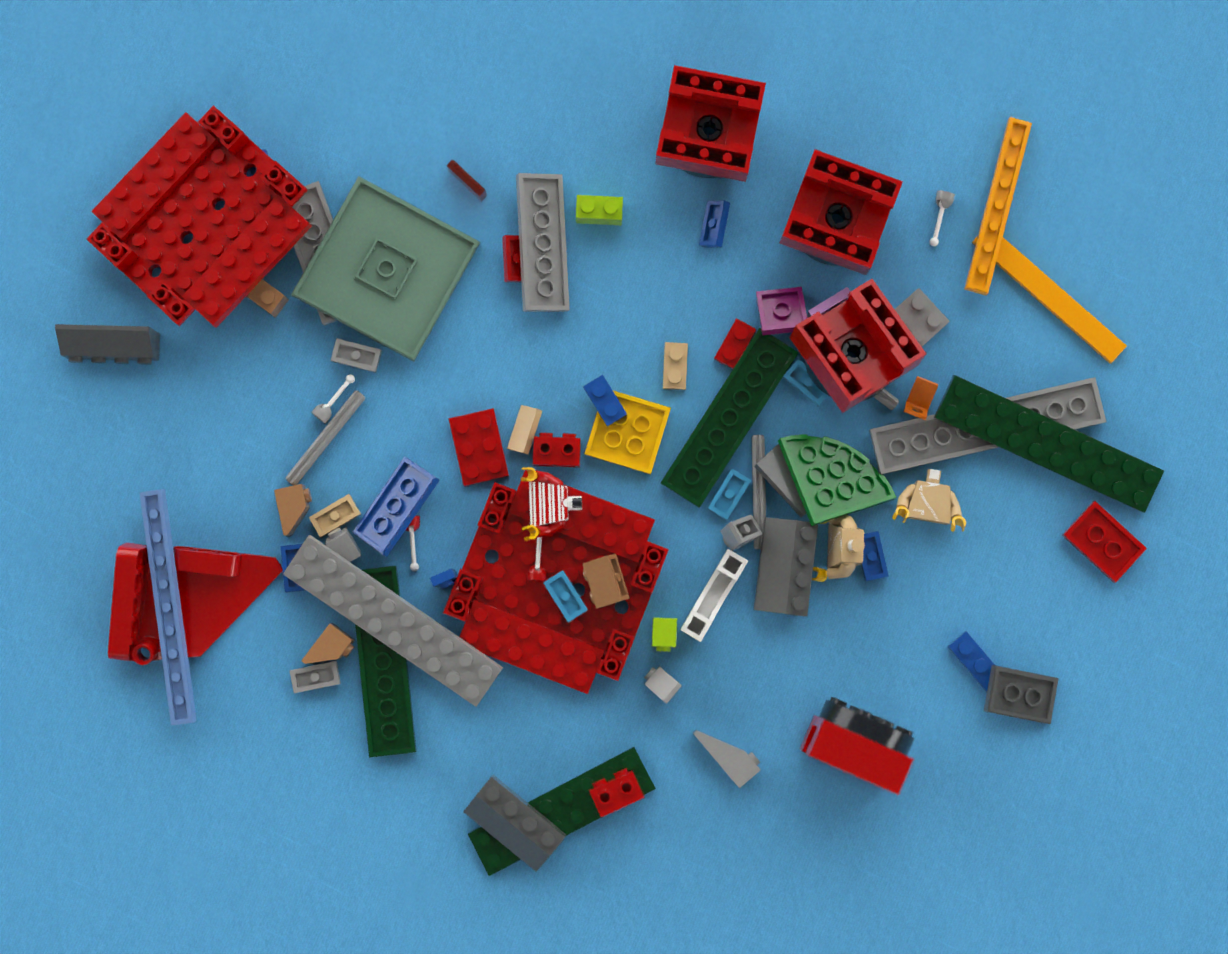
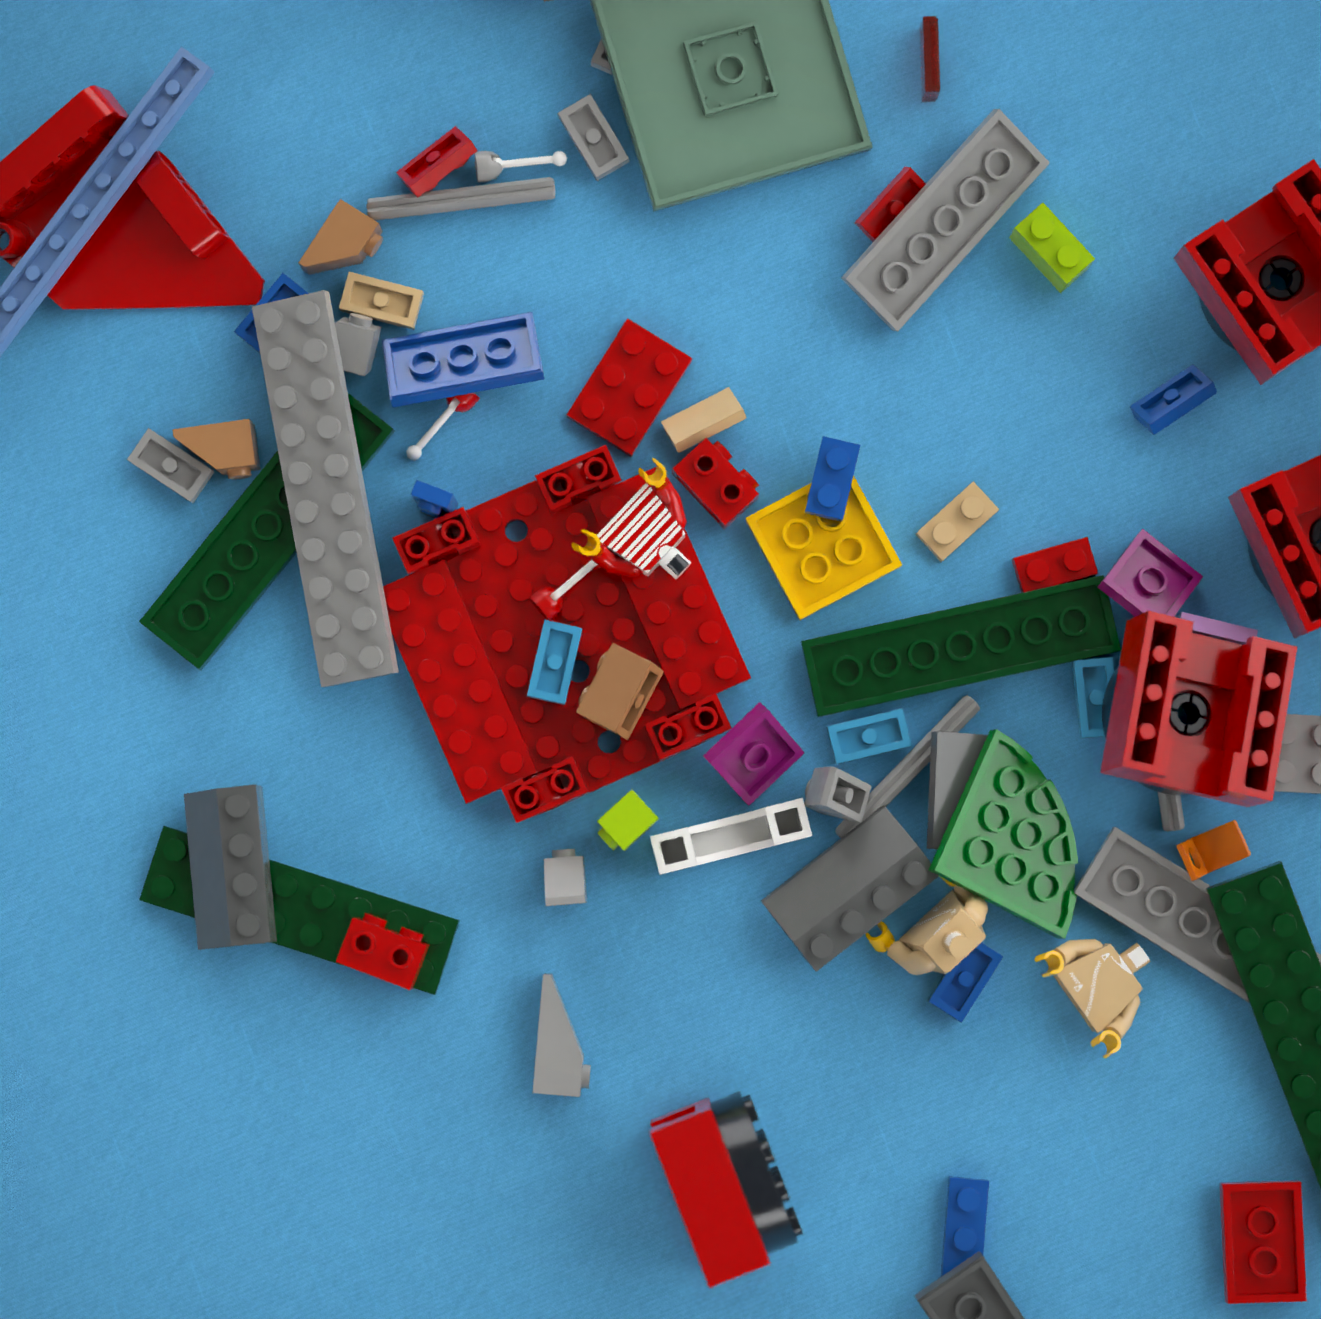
camera: 45 degrees right, 0 degrees up
(299, 432) = (436, 162): none -> red plate
(688, 550) = (754, 754): none -> magenta plate

